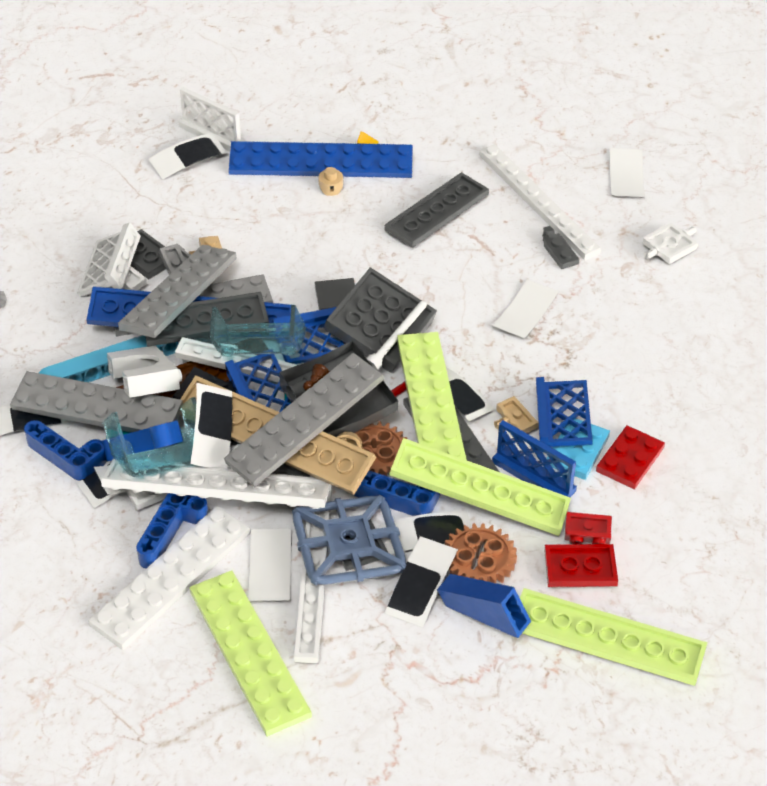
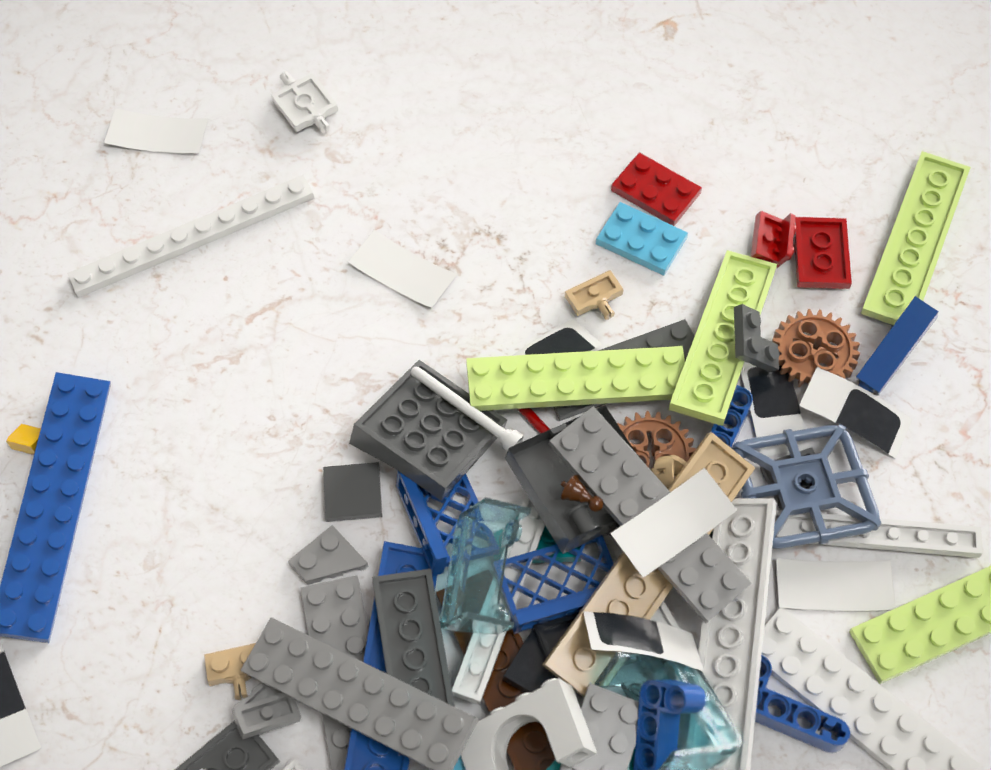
camera: 85 degrees left, 15 degrees up
(287, 286) = (326, 558): none -> light grey wing
(291, 424) = (674, 522): none -> white sticker
(328, 178) = (108, 489): tan piece -> none
(436, 209) = (196, 355): dark grey plate -> none
(464, 494) = (749, 343): none -> dark grey plate
(527, 467) = (685, 278): blue fence -> none
(546, 419) = (593, 262): blue fence -> none
(559, 248) = (293, 221): dark grey hinge -> none

